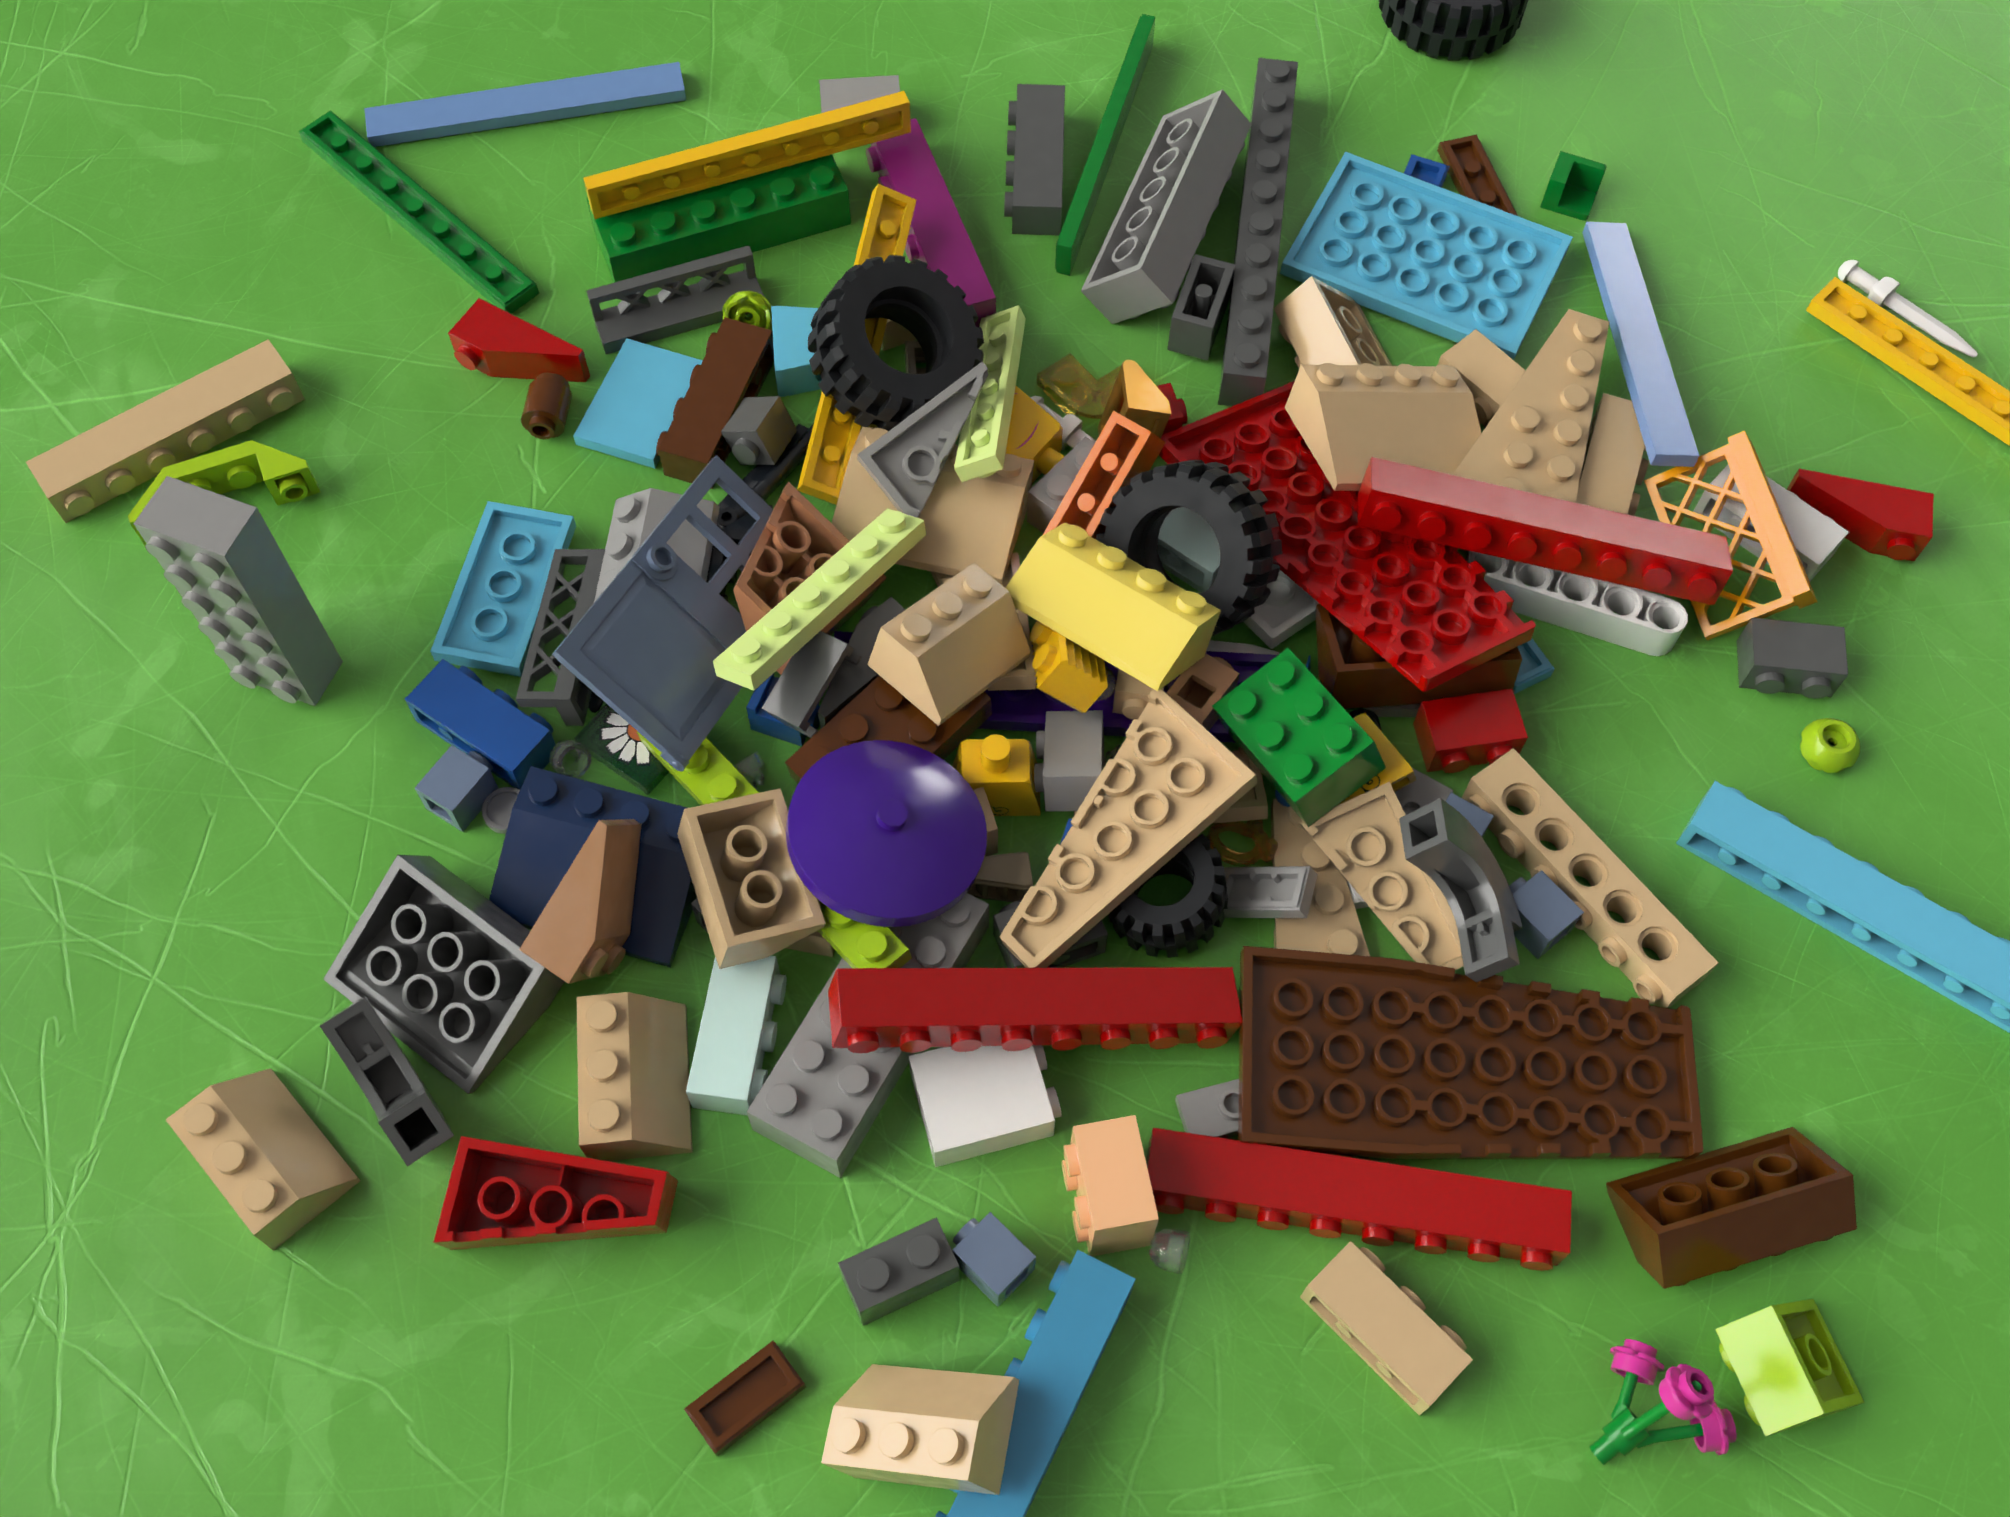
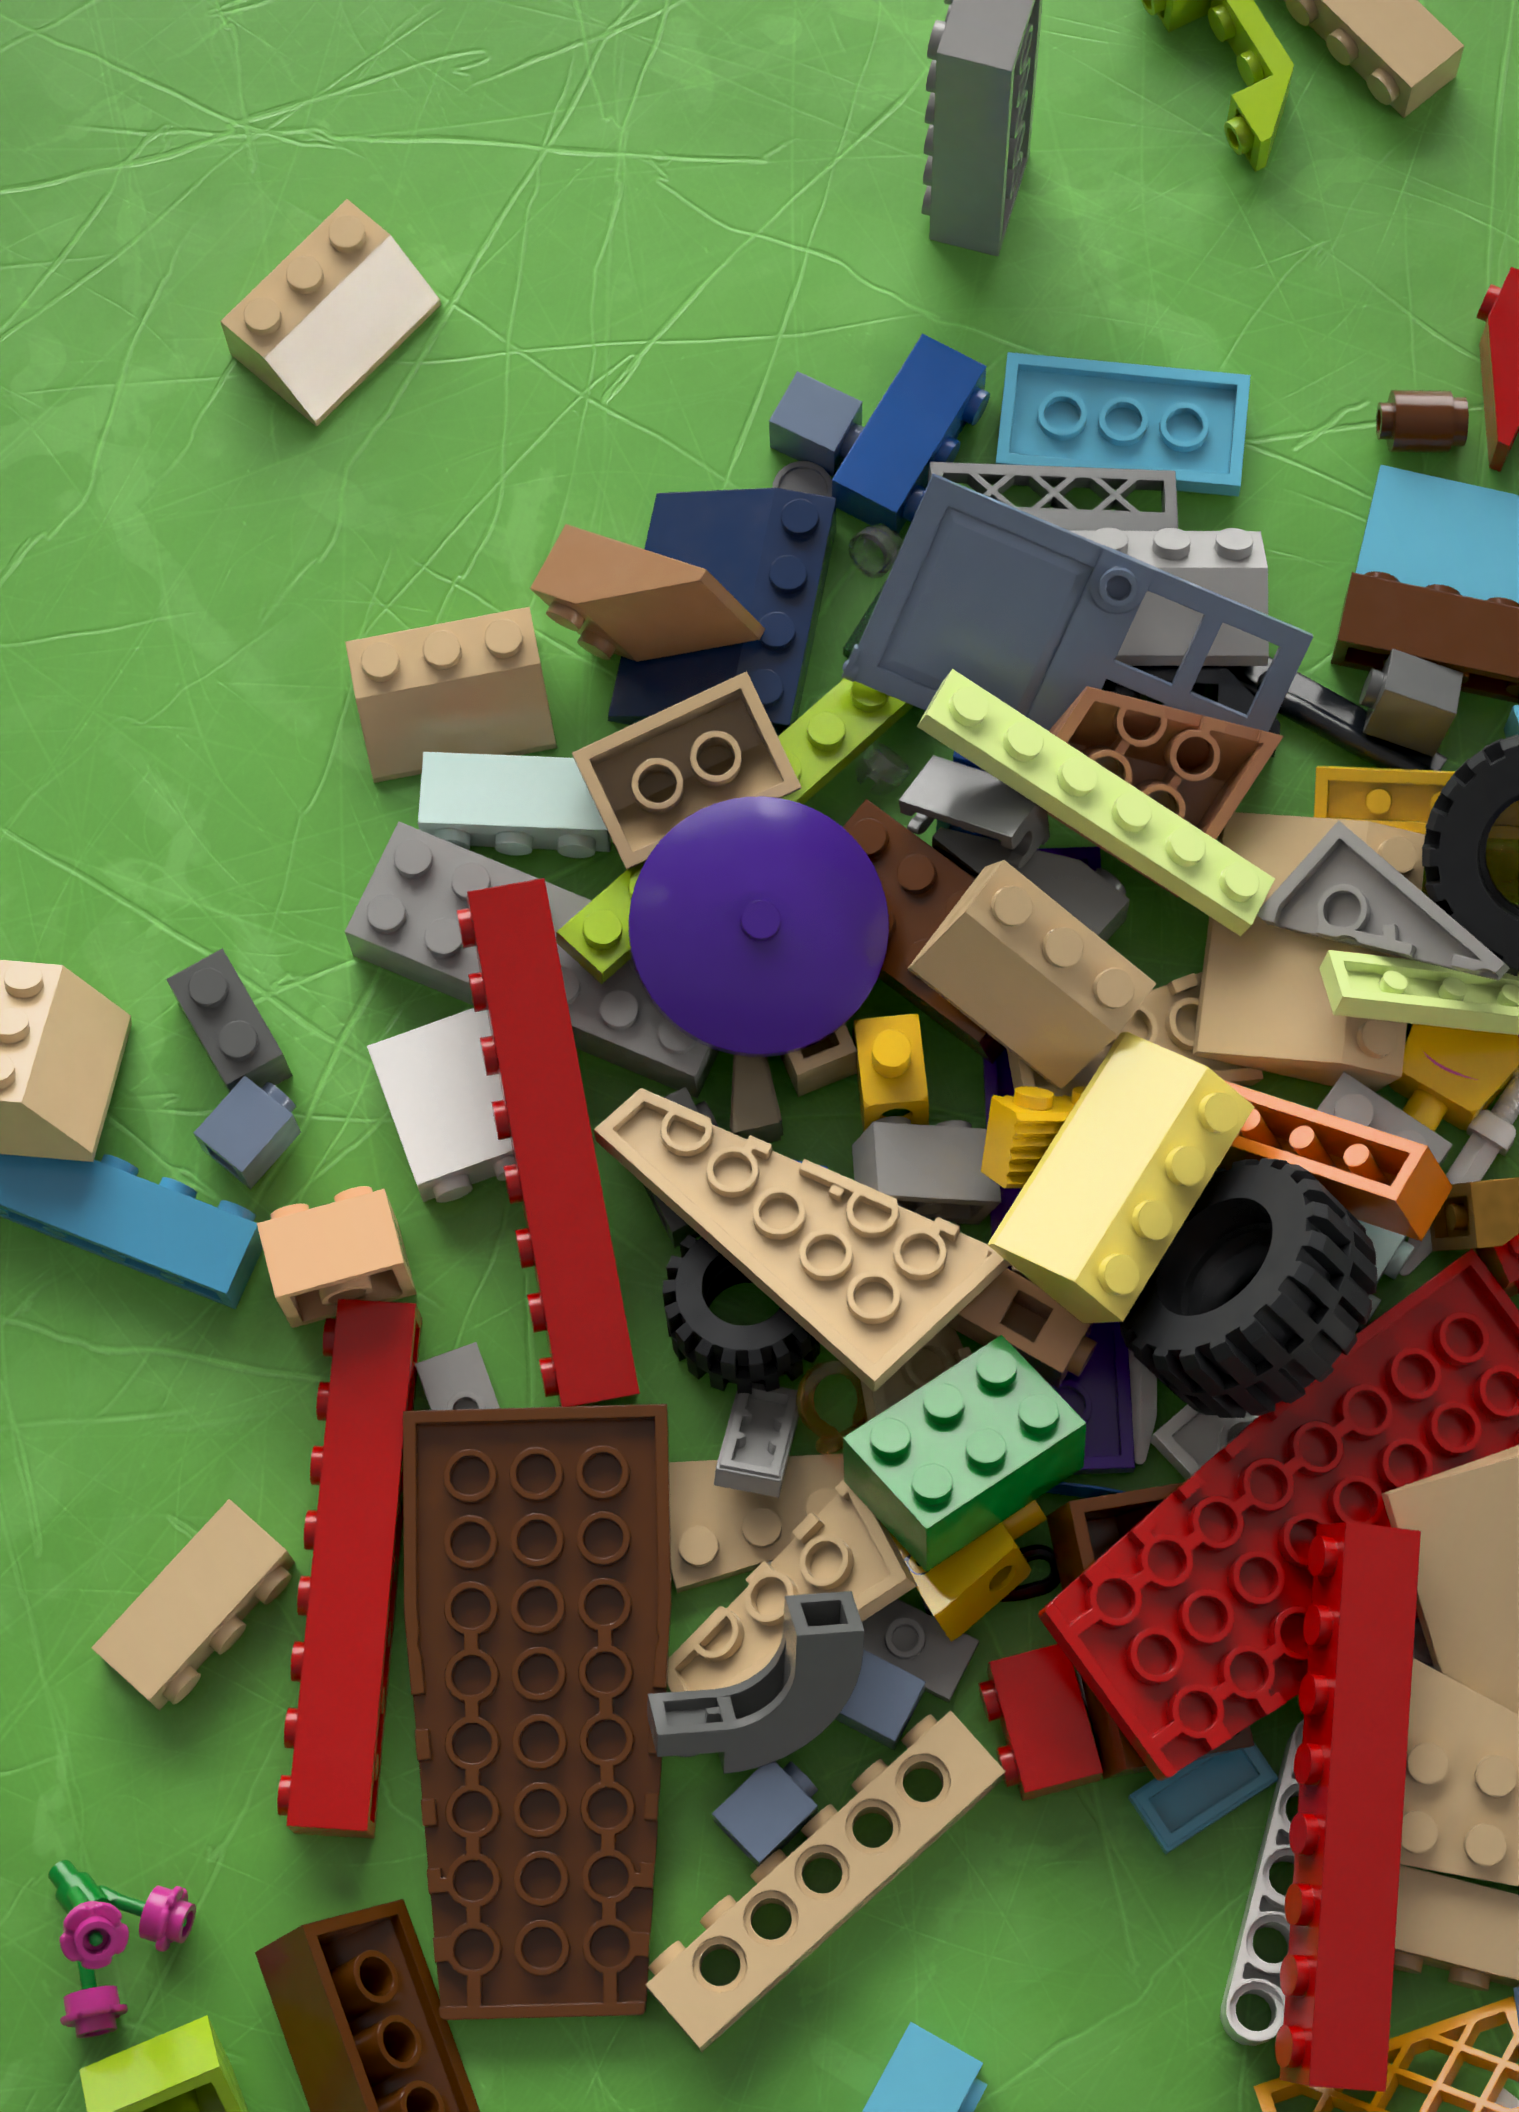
camera: 90 degrees right, 10 degrees up
(387, 1080) = (402, 447): dark grey arch -> none
(443, 970) = (577, 445): dark grey slope -> none
(540, 1196) = (293, 619): red wedge -> none
(745, 1398) = (86, 881): reddish brown tile -> none
(1170, 1249) = (278, 1346): clear hinge -> none

